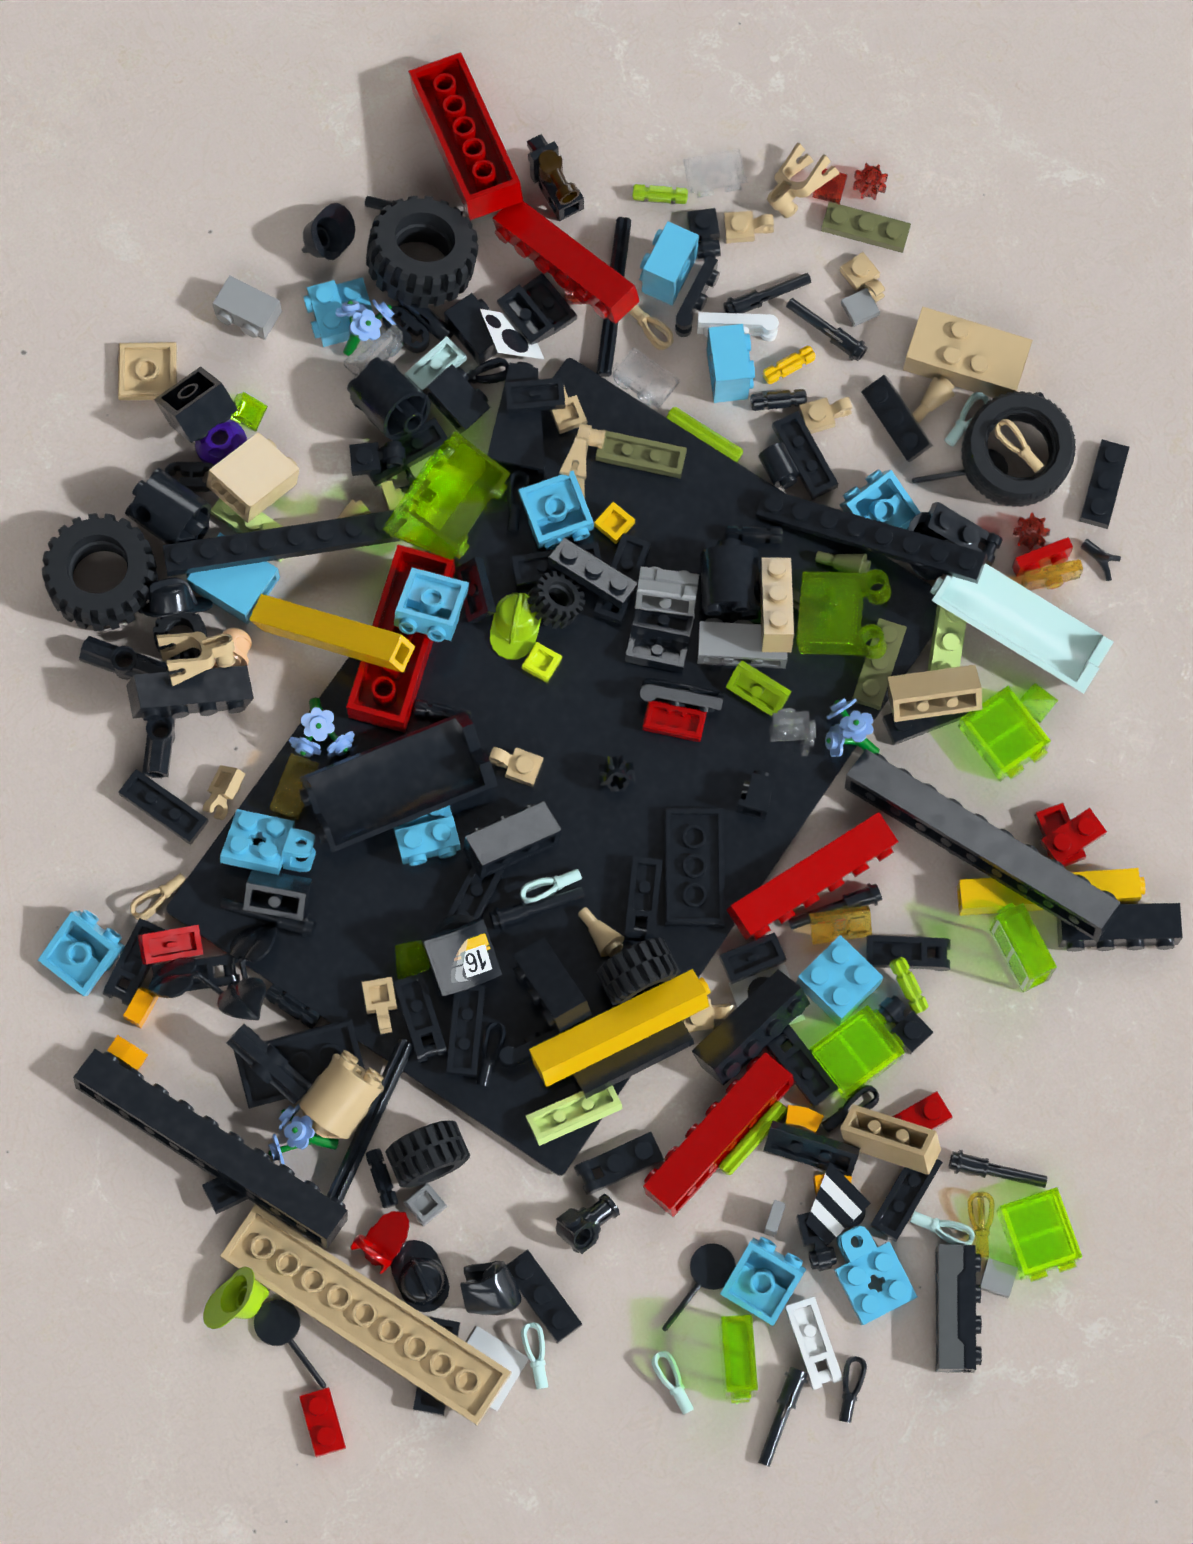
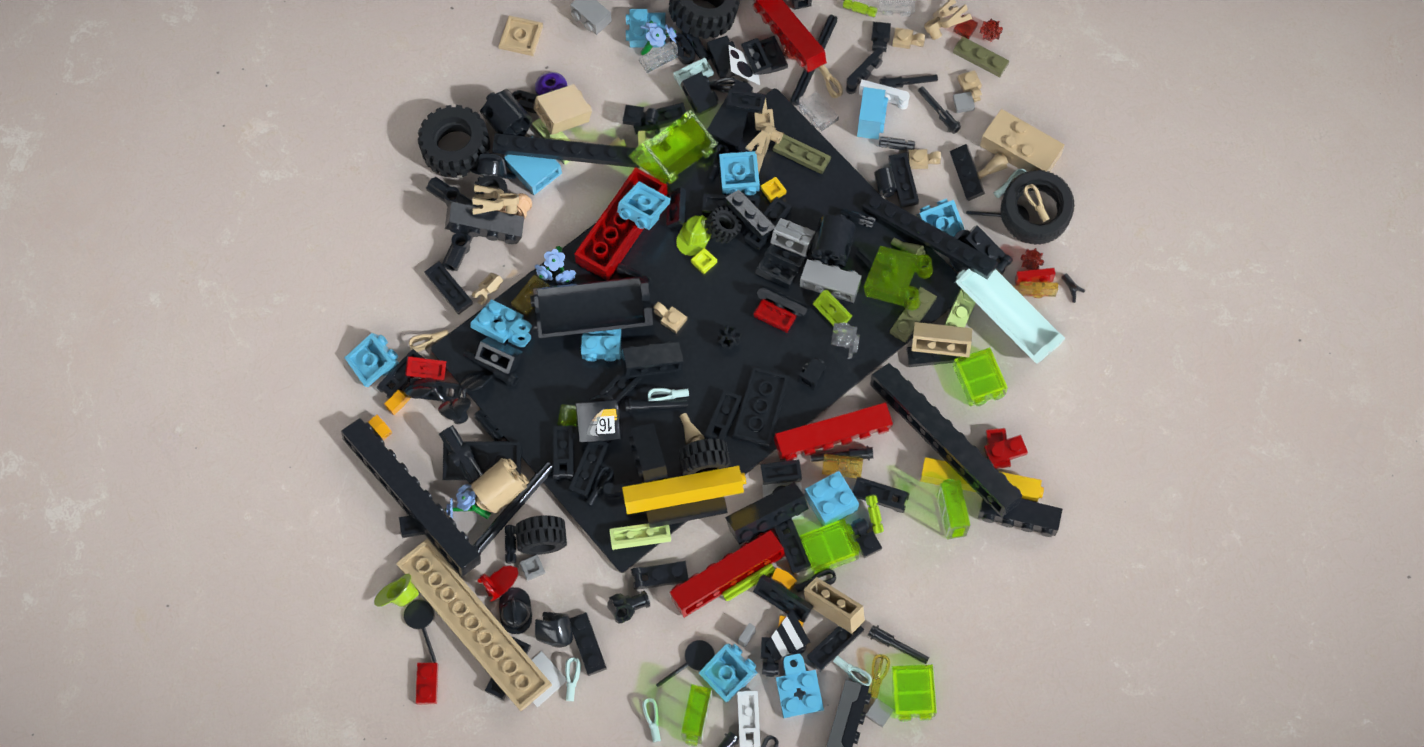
camera: 20 degrees right, 5 degrees down
(196, 405) = (541, 59): black brick -> none
(249, 411) = (573, 72): clear neon green slope -> none
(332, 633) = (579, 208): yellow brick -> none
(379, 999) = (541, 434): tan plate -> none
(389, 399) = (658, 84): black cylinder -> none
(669, 262) = (852, 46): medium azure brick -> none
(705, 434) = (845, 152): lime axle -> none
(705, 1019) = (739, 500): tan plate -> none
(776, 605) = (856, 260): tan brick -> none
(789, 364) = (909, 125): yellow axle -> none
(854, 726) = (883, 345): light blue plant -> none
(928, 1112) = (865, 596): red plate -> none
(1038, 702) = (1007, 364): clear neon green slope -> none
(1104, 484) = (1087, 243): black plate -> none

